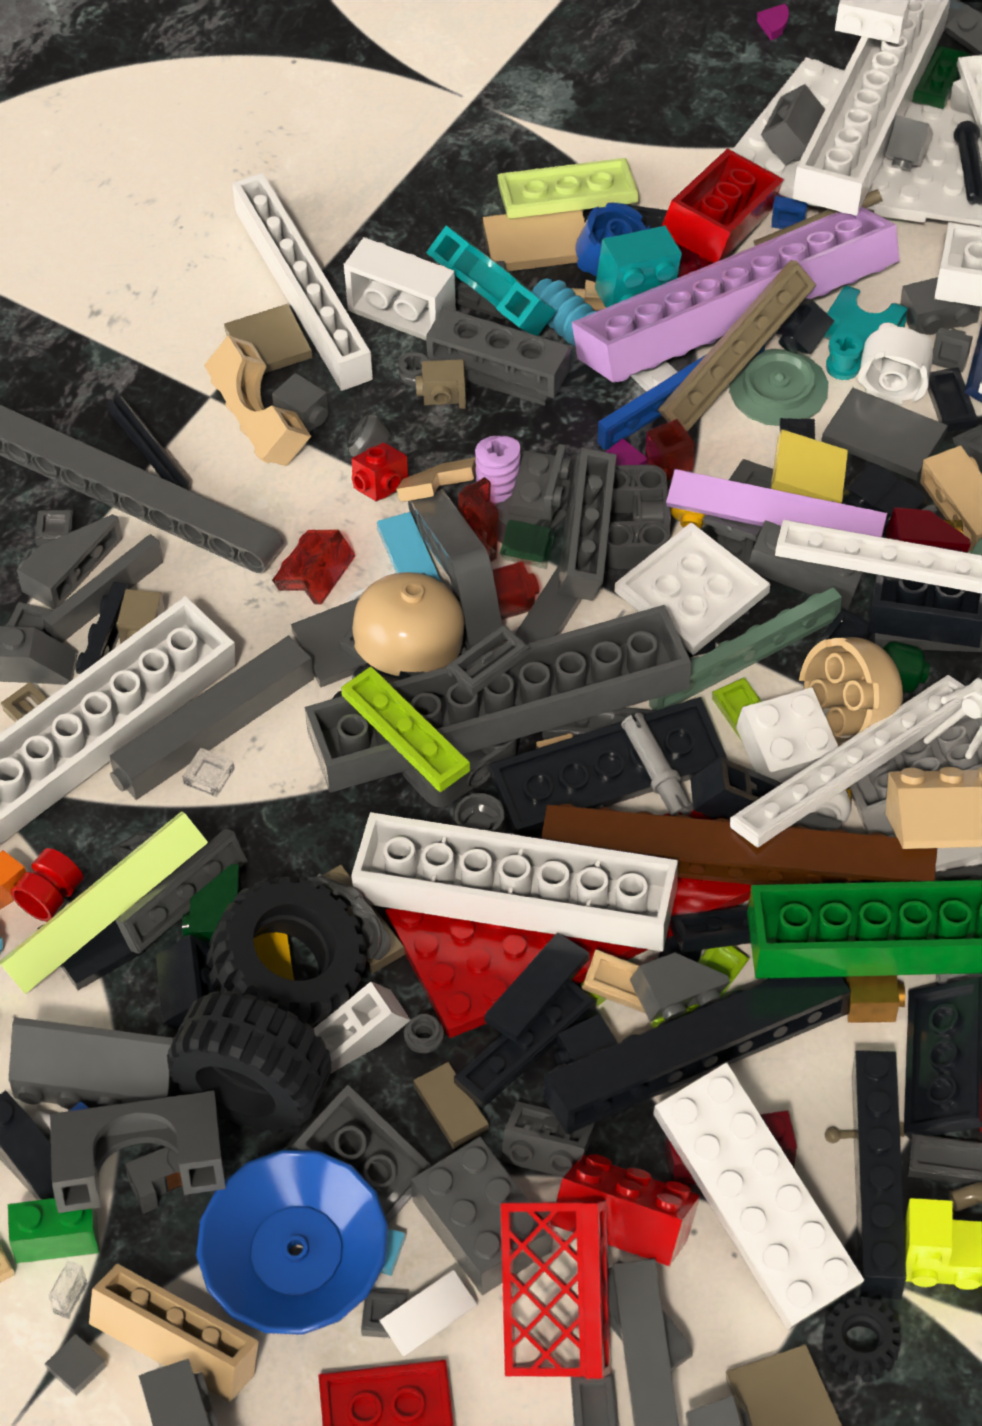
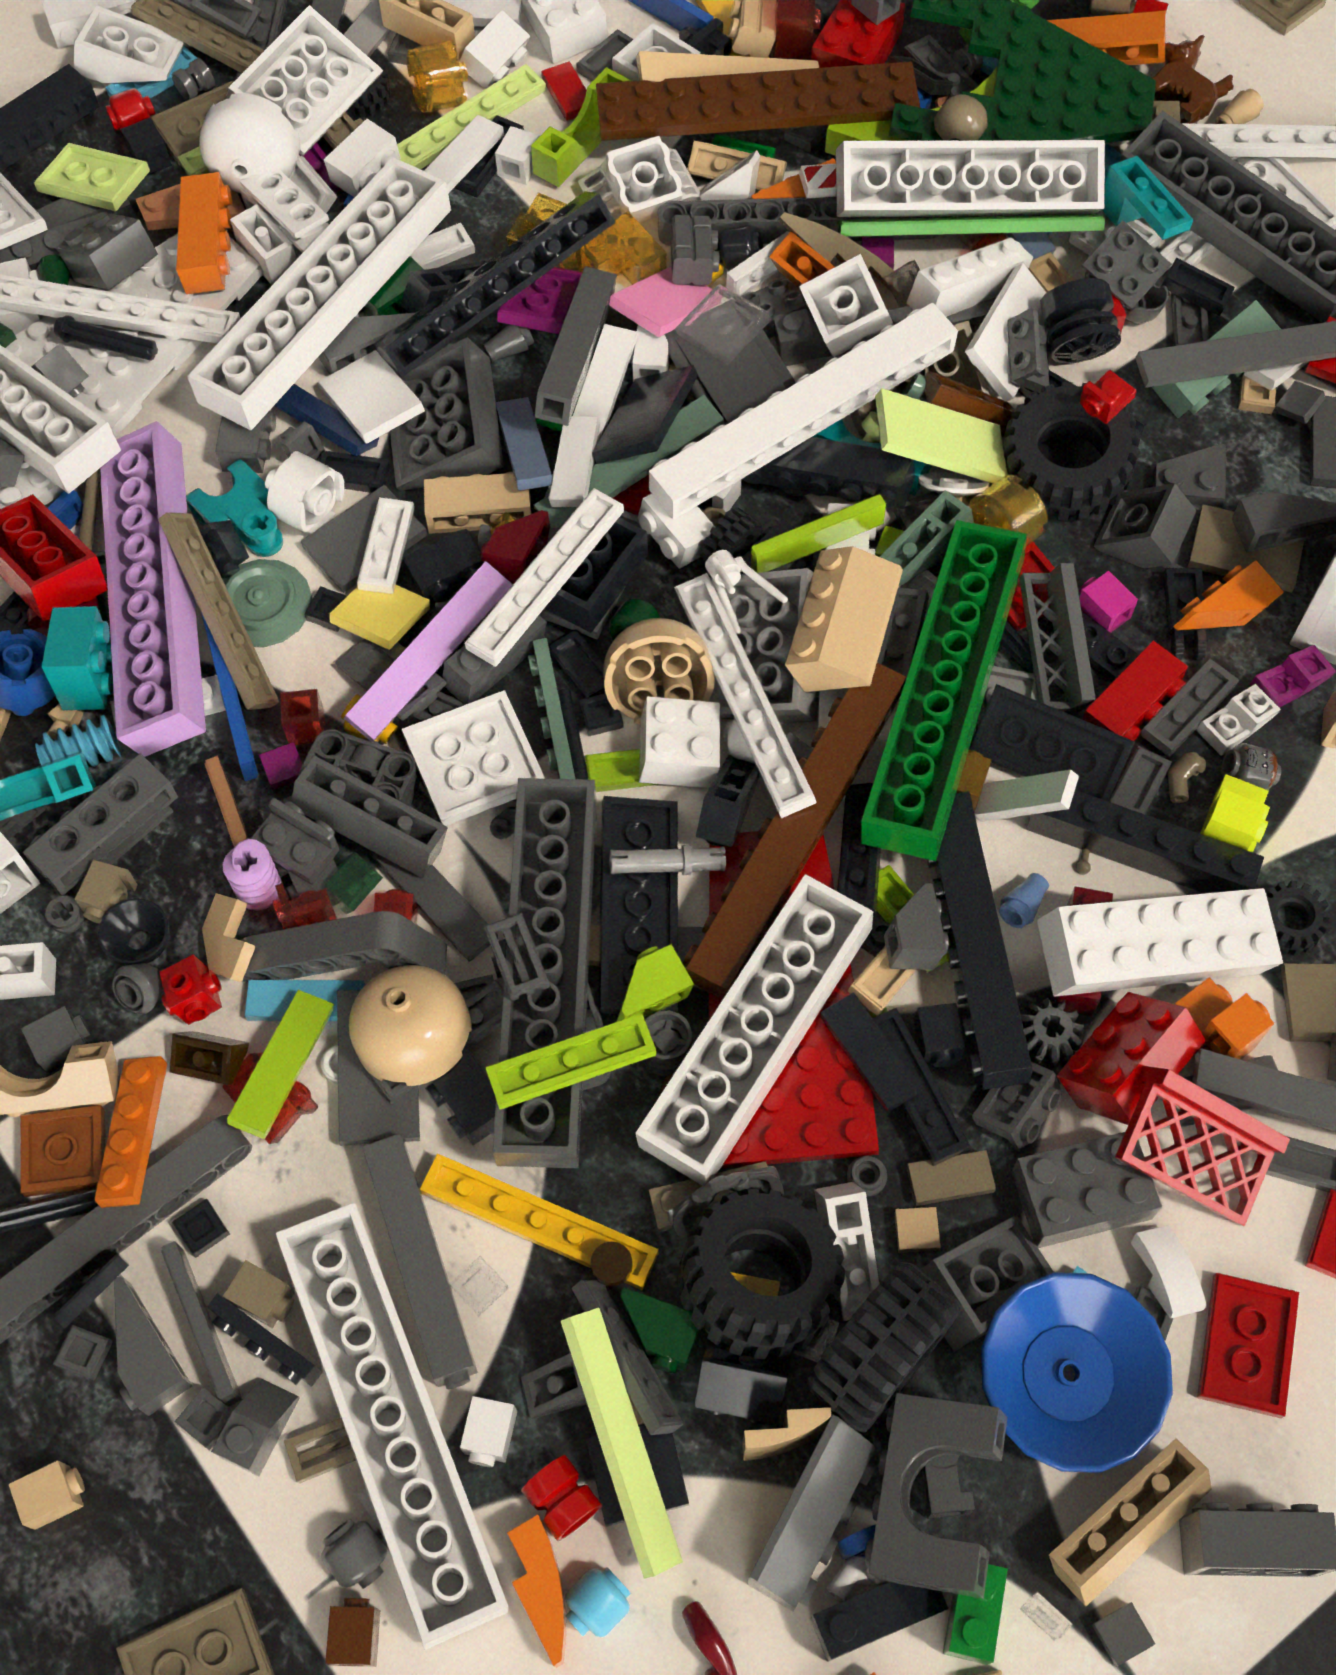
camera: 70 degrees left, 10 degrees up
(85, 816) = (488, 1431): none -> white brick
(98, 502) = (90, 1290): none -> black tile
(146, 1020) = (798, 1429): none -> tan slope
(184, 564) = (201, 1228): none -> black tile
(210, 447) = (62, 1150): none -> dark orange plate
(241, 480) = (131, 1132): none -> orange plate
(257, 851) = (611, 1263): none -> dark brown tile
(279, 789) = (530, 1216): none -> yellow plate
(329, 506) = (207, 1056): none -> dark brown slope
(336, 551) = (280, 1064): none -> lime tile
(389, 1091) = (917, 1230): none -> tan tile
(414, 406) = (127, 919): none -> black piece
(522, 790) = (655, 983): none -> lime slope
(567, 430) = (226, 800): none -> medium nougat tile
(624, 1130) = (1065, 1034): none -> dark grey gear
(703, 1289) = (1227, 1026): none -> orange brick
(748, 668) = (573, 735): none -> black bar
(766, 1085) = (1022, 903): none -> medium blue cone
(787, 675) = (600, 715): none -> black tile
(868, 1040) = (1026, 795): none -> white tile
(879, 446) = (385, 545): none -> white tile

